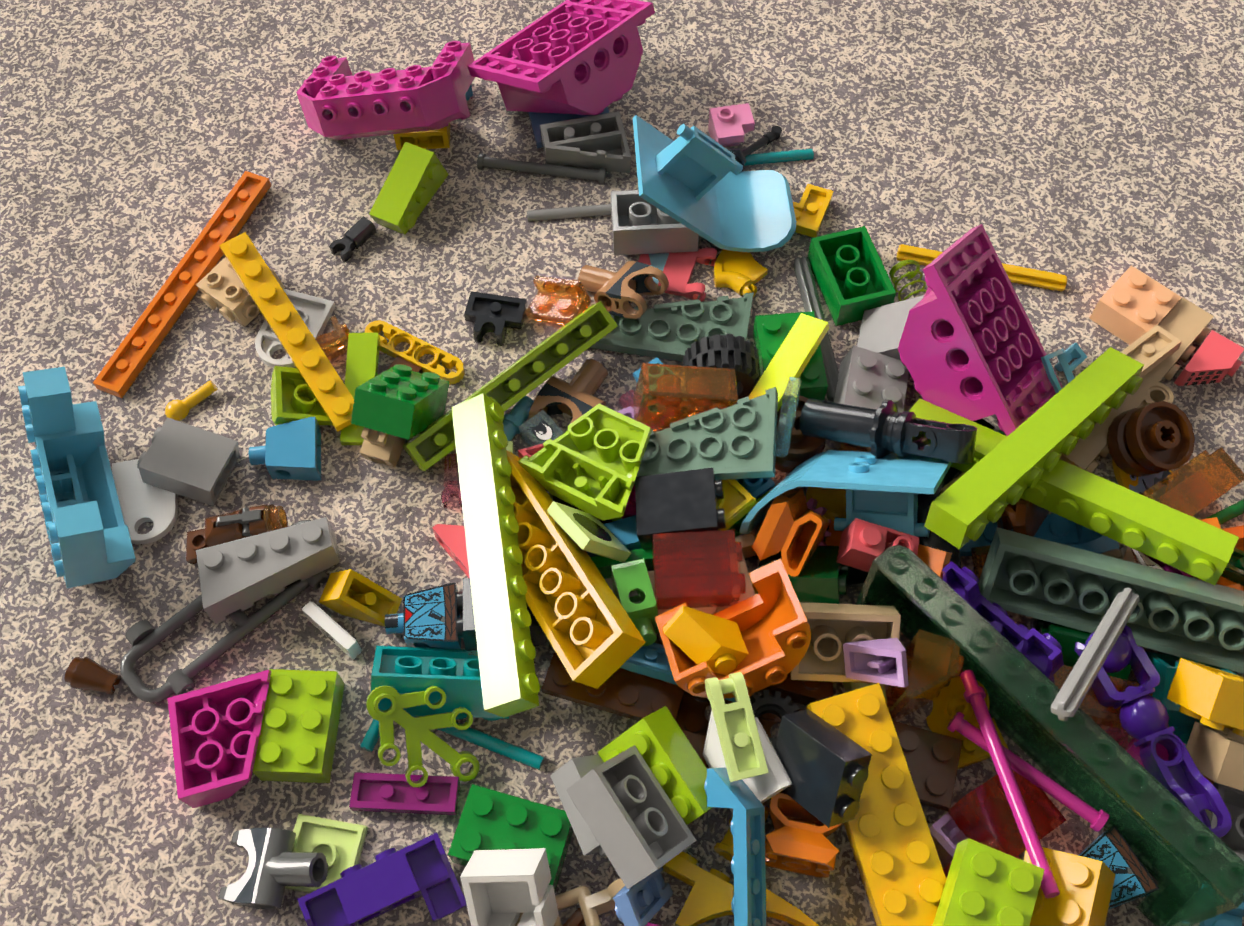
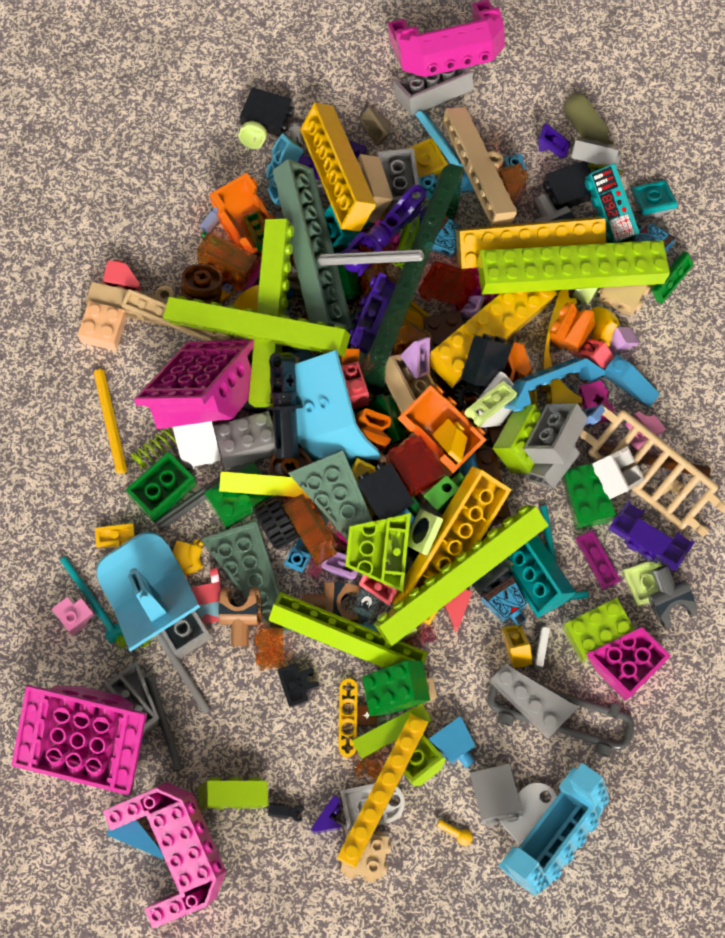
camera: 120 degrees left, 10 degrees up
(91, 676) = (639, 759): reddish brown cone -> none
(181, 286) = (374, 899): orange plate -> none
(235, 526) = (523, 735): plate -> none
(306, 270) = (324, 822): none -> dark purple slope
(419, 730) = (569, 579): lime plant -> none
(765, 140) = (99, 598): black piece -> none
(787, 416) = (293, 463): clear light blue tile -> none
(975, 695) = (444, 280): dark pink bar -> none
(1064, 358) = (169, 348): medium azure sword -> none
(1095, 817) = (418, 319): dark pink bar -> none

